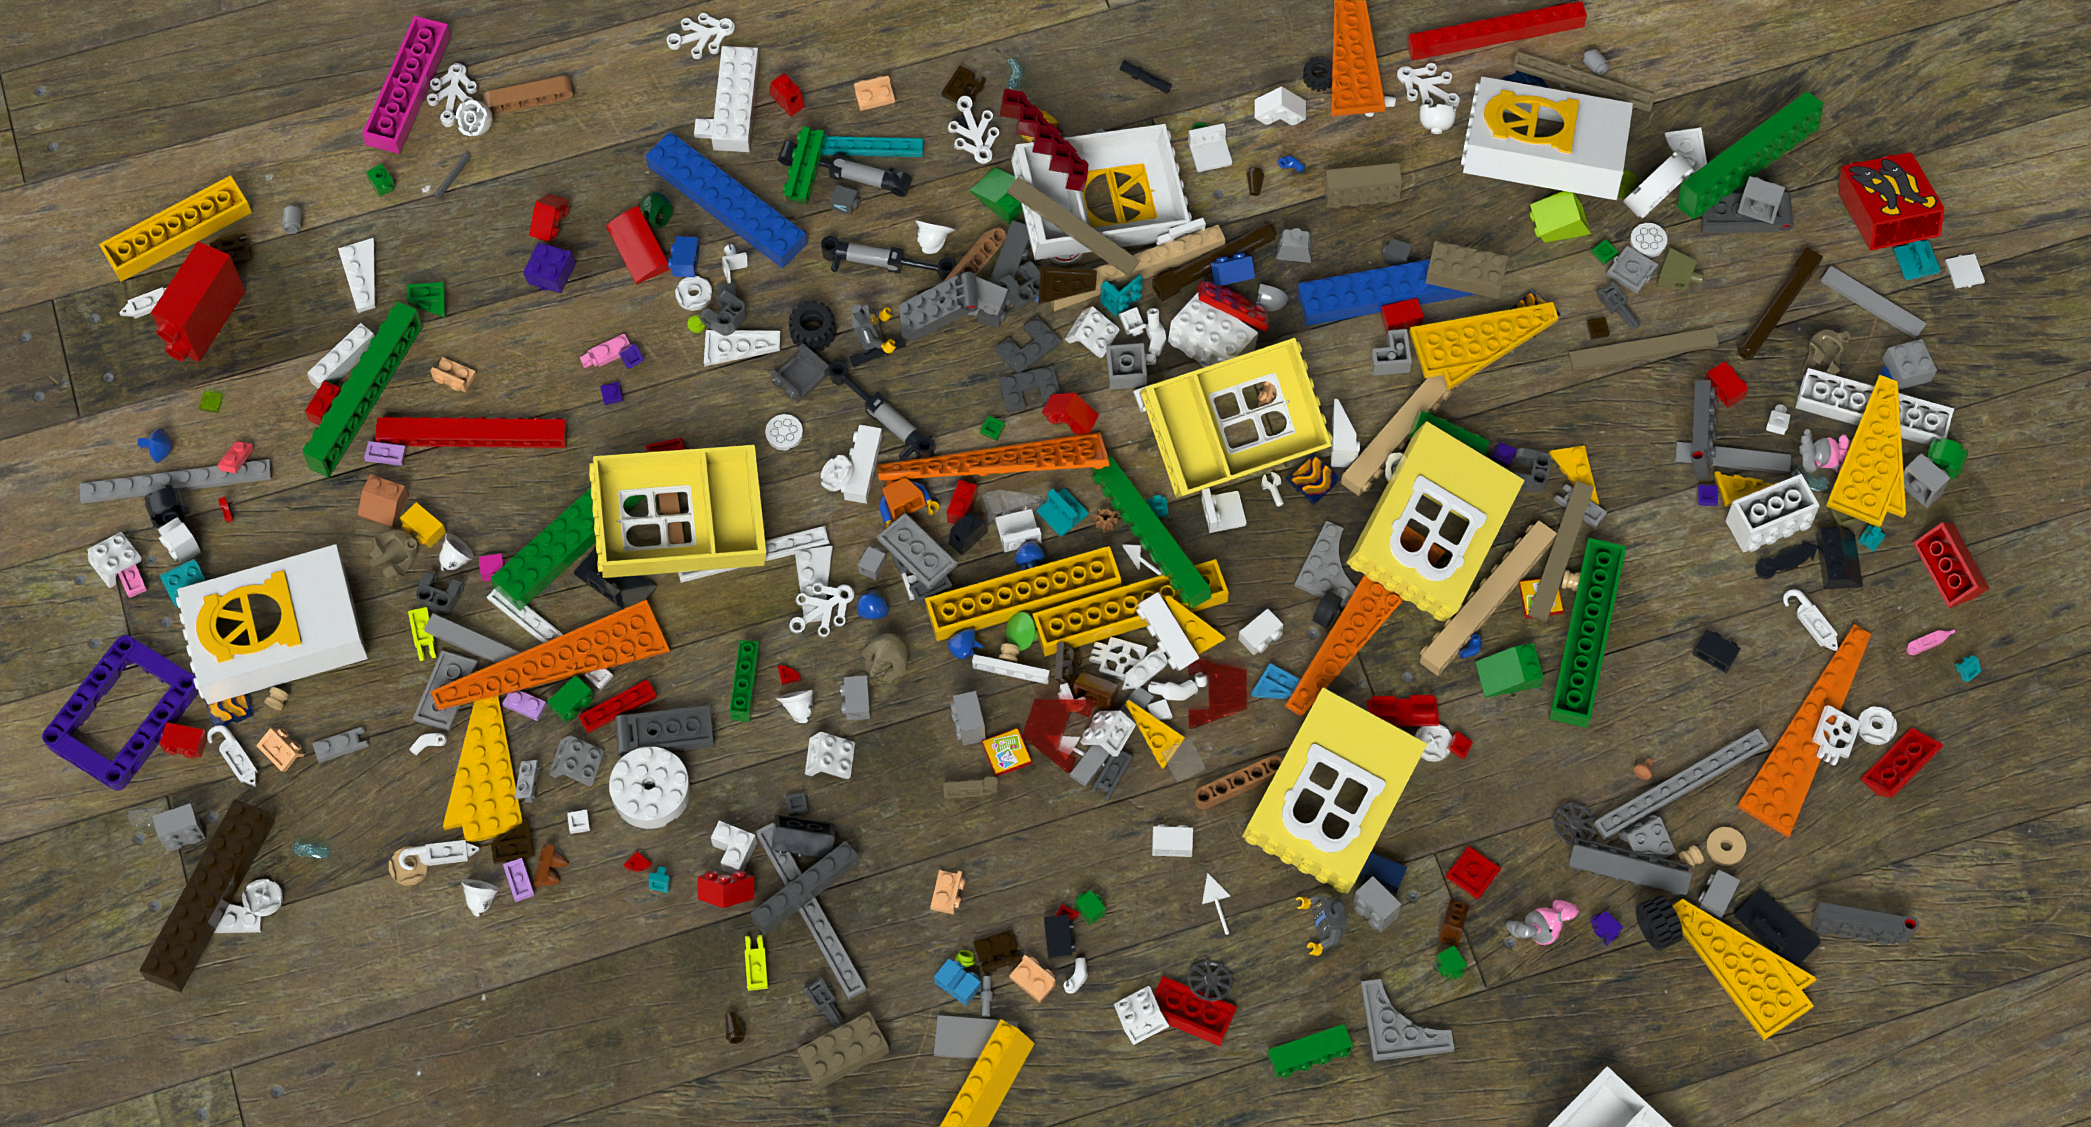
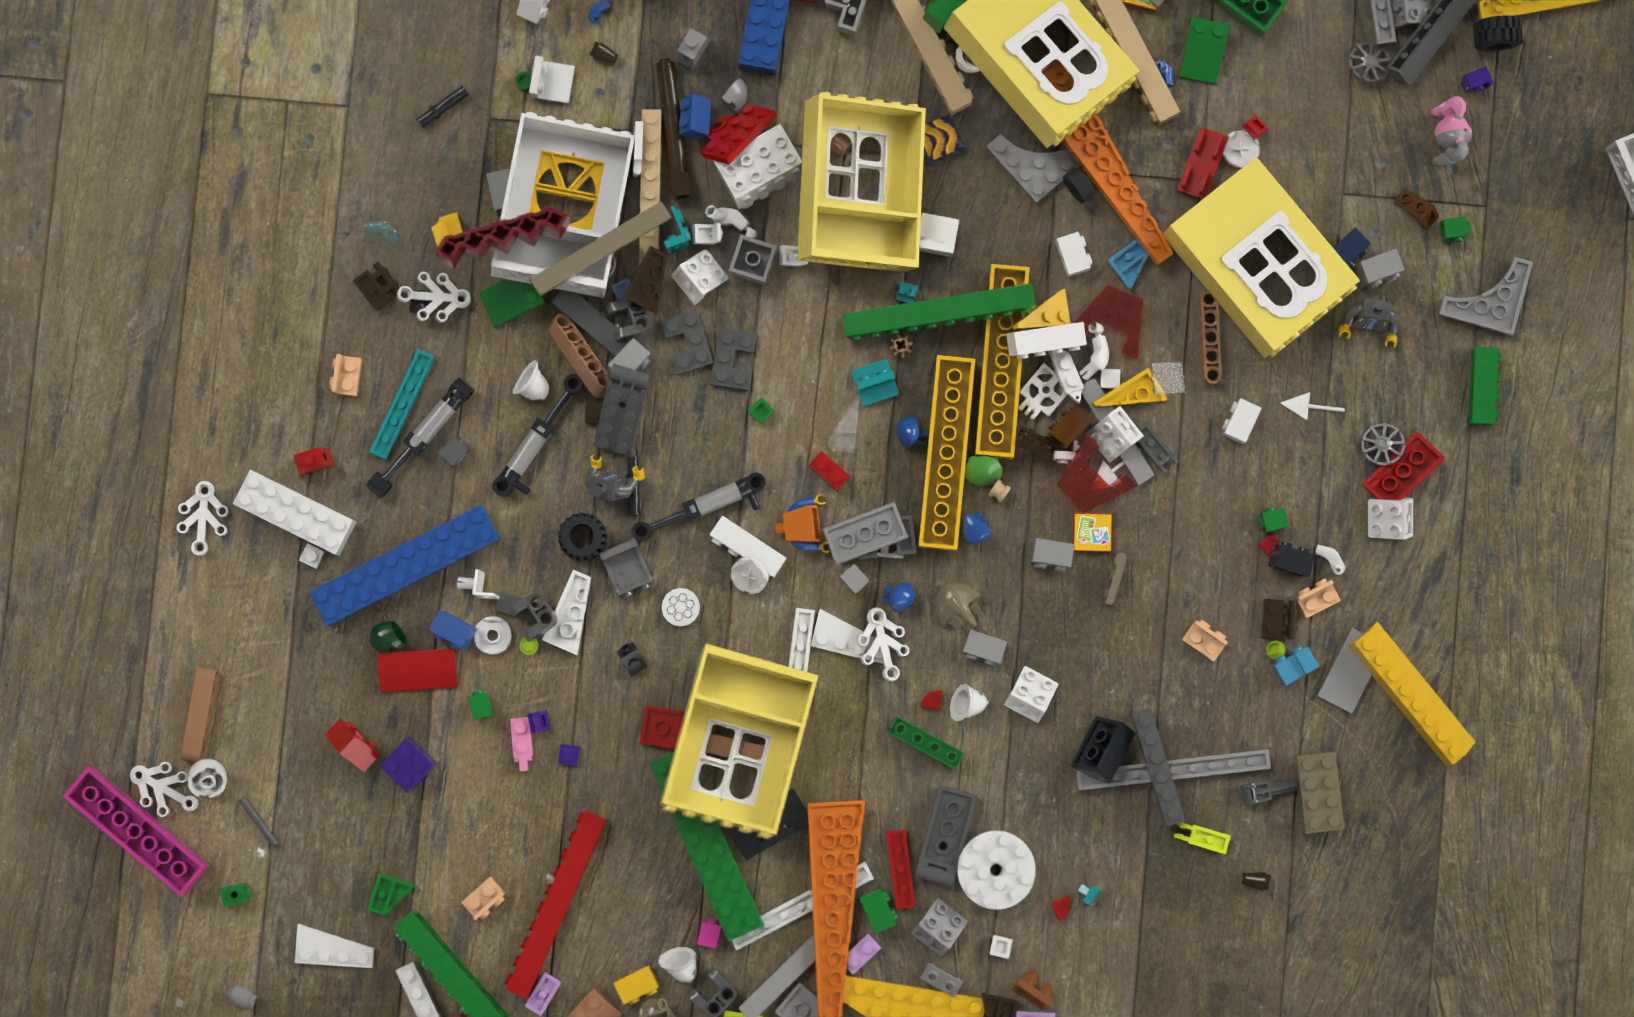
camera: 65 degrees left, 20 degrees up
(625, 303) = (480, 705): none -> green brick
(719, 409) = (631, 658): none -> black bracket
(725, 889) = (1130, 838): red brick -> none
(737, 844) = (1086, 810): white brick -> none
(797, 803) = (1063, 741): dark grey tile -> none
(804, 165) = (403, 474): green brick -> none
(968, 530) = (862, 479): black torso -> none
(986, 996) = (1317, 645): light grey bar -> none
(1011, 669) = (1015, 495): white tile -> none
(1017, 529) = (876, 430): white bracket -> none
(1051, 454) = (815, 371): orange wing -> none
(1071, 410) = (780, 333): red brick -> none
(1134, 553) = (947, 333): white piece -> none
(1273, 487) = (934, 179): white bar -> none
(1344, 444) = (913, 92): white slope -> none
(1473, 872) = (1377, 171): red tile -> none

